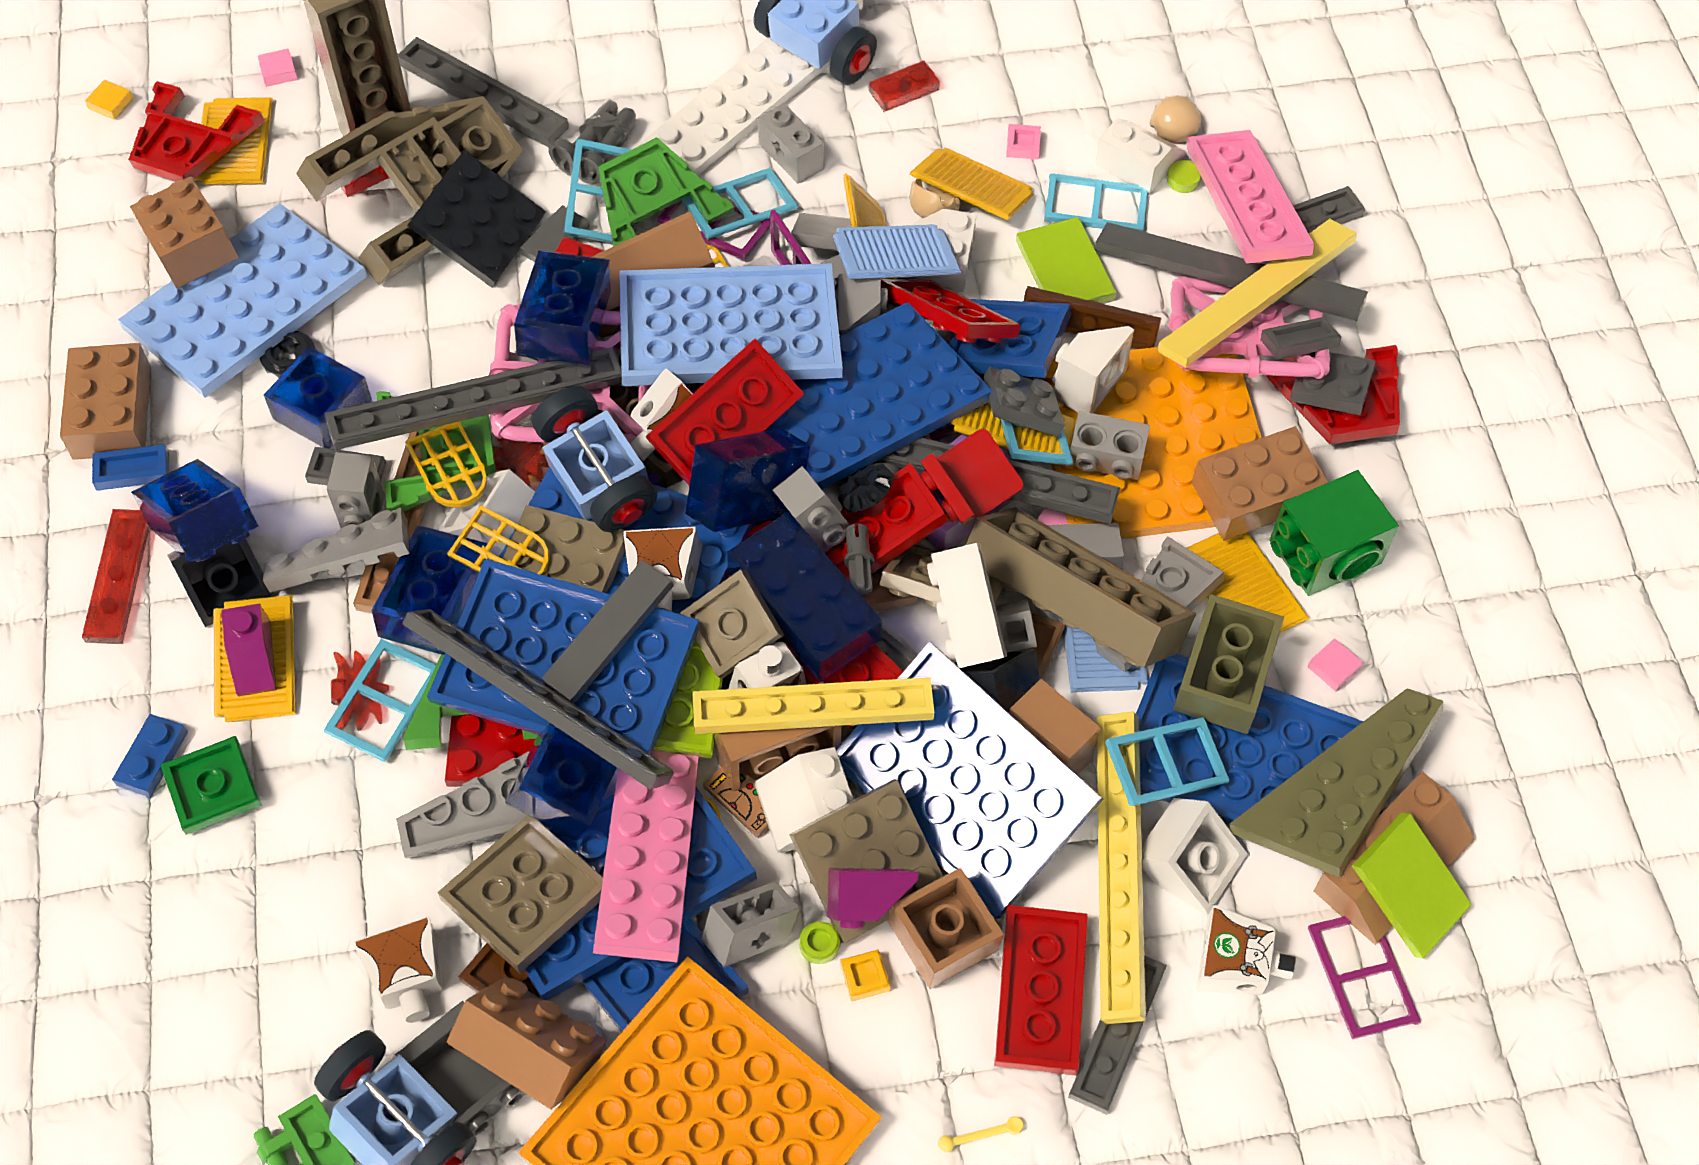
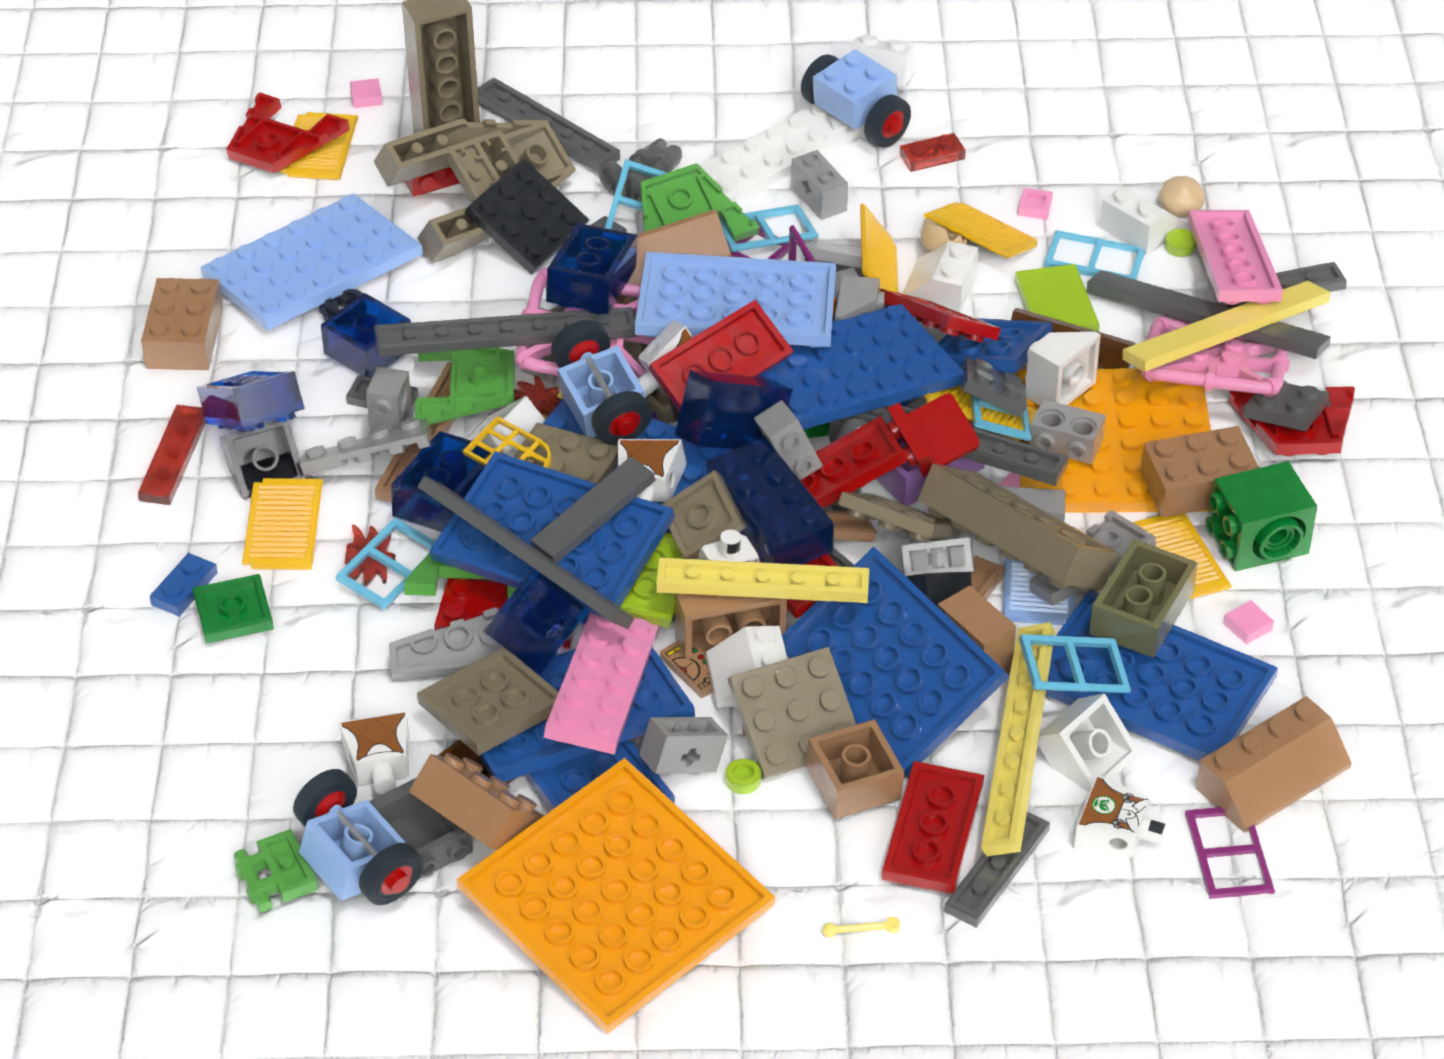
camera: 10 degrees right, 15 degrees down
(109, 99) = (214, 105): yellow tile -> none
(129, 467) = (186, 376): blue tile -> none
(184, 231) = (268, 203): medium nougat brick -> none
(249, 649) = (281, 509): magenta slope -> none
(453, 453) = (462, 384): yellow window -> none
(858, 495) = (838, 432): black gear -> none
(859, 559) = (823, 481): dark grey axle -> none
(865, 893) = (786, 726): magenta slope -> none
(865, 975) = (779, 803): yellow tile -> none
(895, 251) = (897, 264): light blue window -> none
(967, 605) = (911, 519): white brick -> none
(1300, 338) = (1257, 362): dark grey tile -> none
(1336, 797) = (1228, 706): olive wing -> none
(1411, 885) = (1280, 779): lime tile -> none

